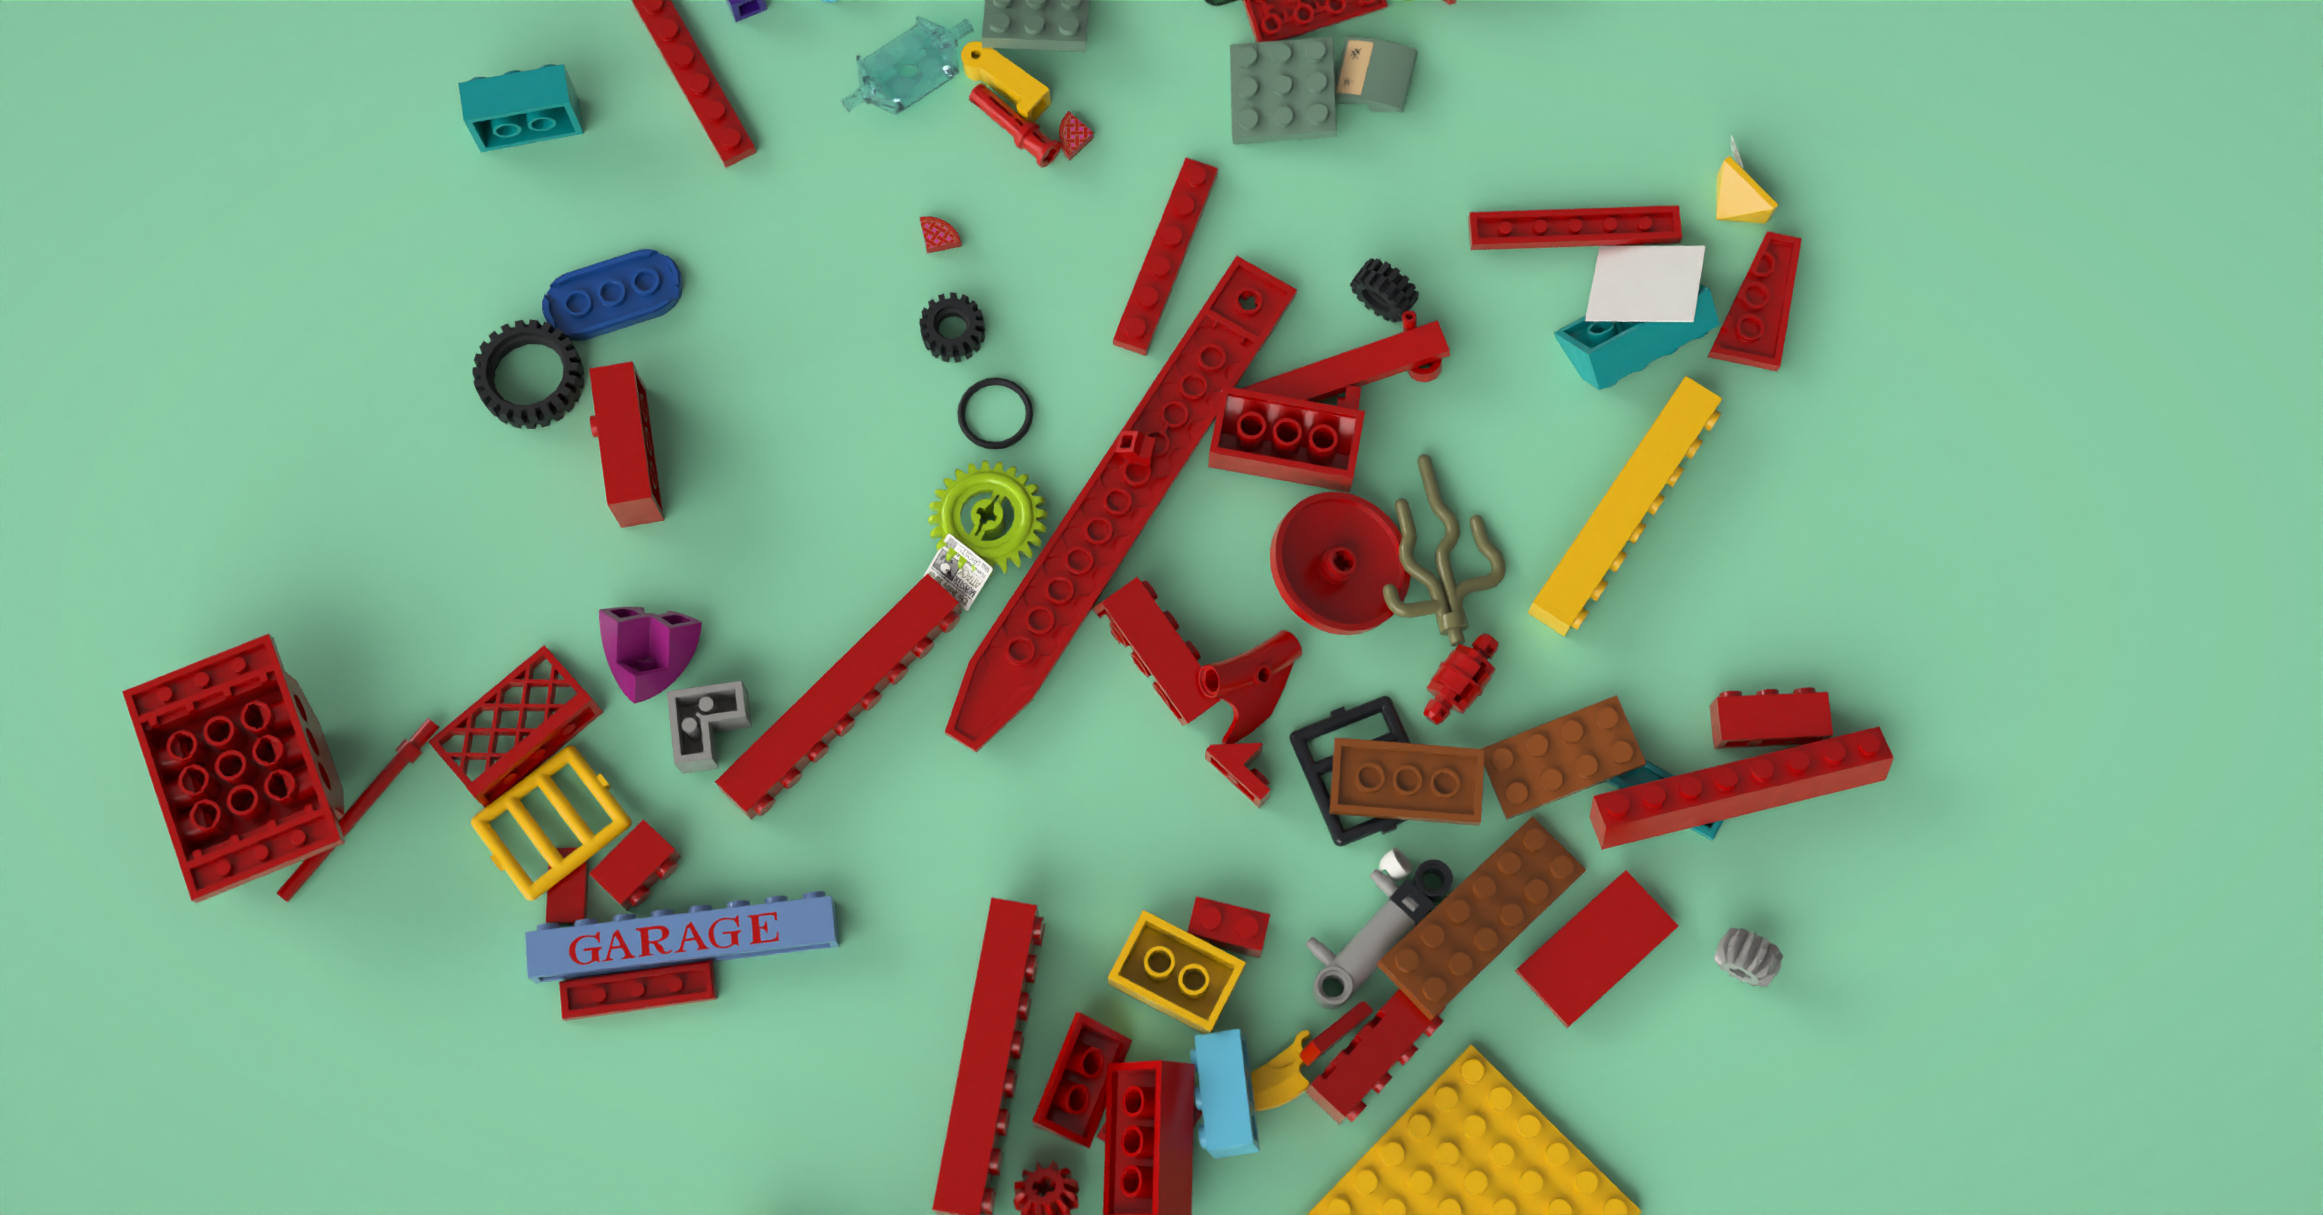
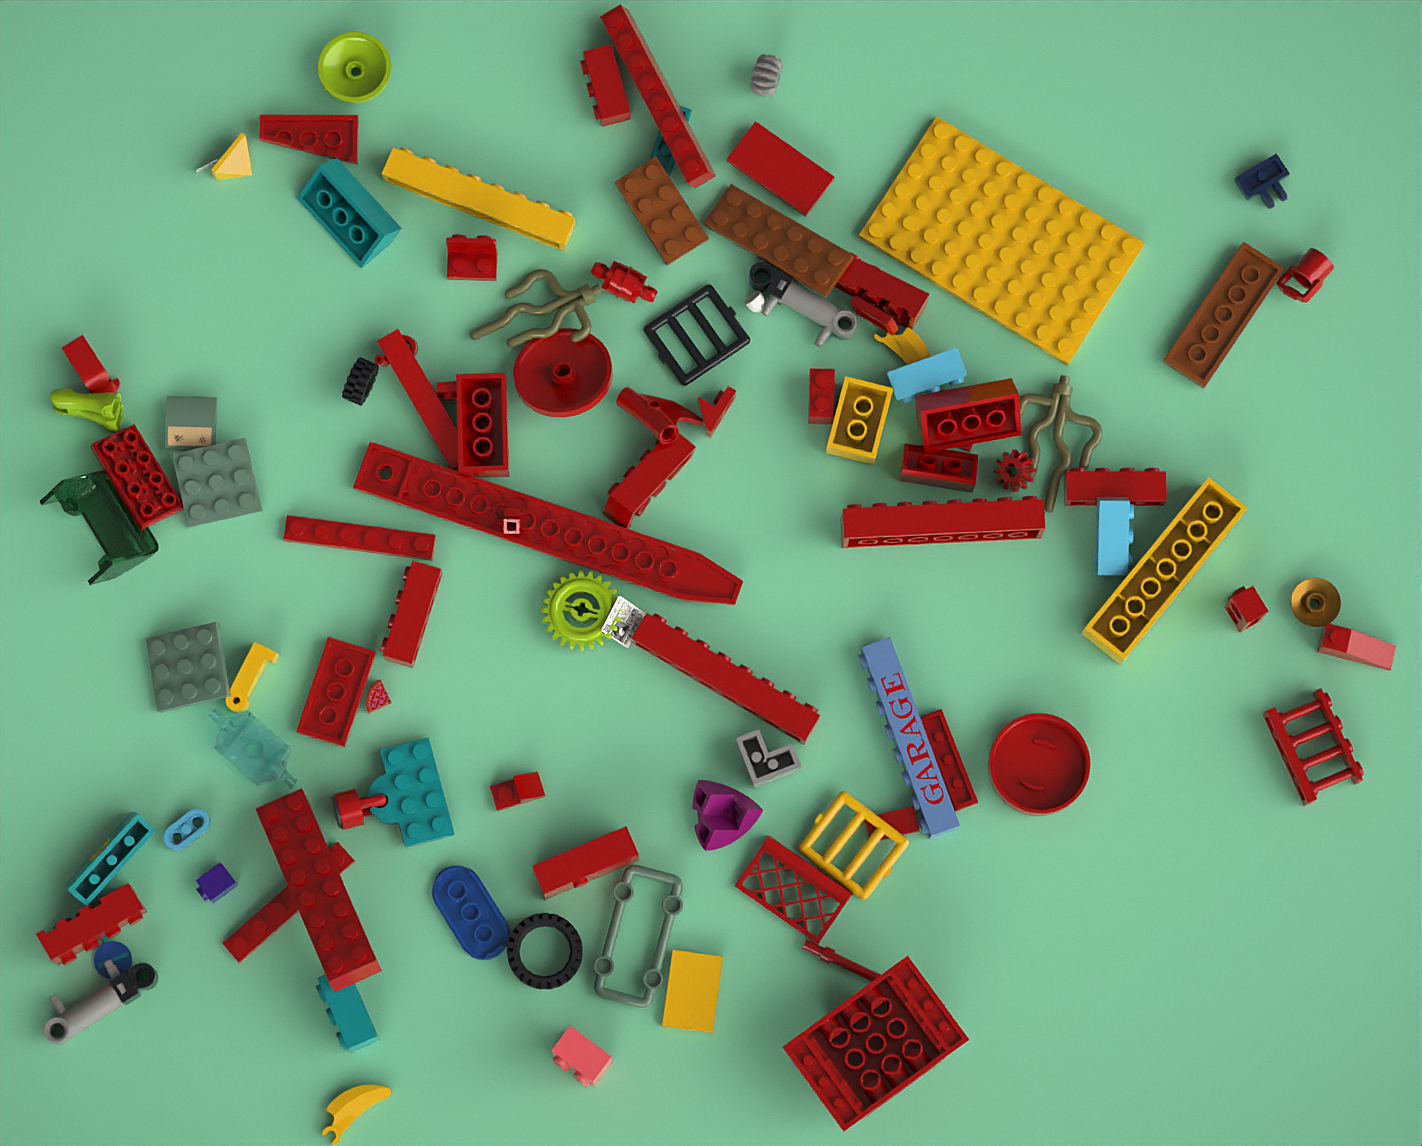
camera: 105 degrees left, 5 degrees up
(357, 377) = (581, 1056): none -> coral brick
(404, 98) = (351, 1105): none -> yellow piece
(416, 557) = (692, 991): none -> yellow tile
(486, 448) = (653, 977): none -> sand green bar
(588, 1122) = (1039, 764): none -> red piece
(636, 866) = (869, 780): red brick -> none
(681, 91) = (318, 890): none -> red brick
(759, 387) = (517, 791): none -> red slope
(793, 241) = (404, 795): none -> teal plate
(946, 308) = (440, 655): black tyre -> none
(957, 183) = (336, 692): none -> red plate
(990, 382) = (504, 650): black tyre -> none
(1025, 133) = (287, 654): red pin -> none
(1040, 297) = (412, 613): none -> red brick
(1073, 135) = (280, 621): red tile -> none
(1407, 781) = (701, 302): dark orange plate -> none
(1536, 477) = (472, 258): none -> red bracket
(1574, 227) = (281, 266): red plate -> none
(1646, 283) = (319, 209): white piece -> none
(1864, 357) = (350, 53): none -> lime dish

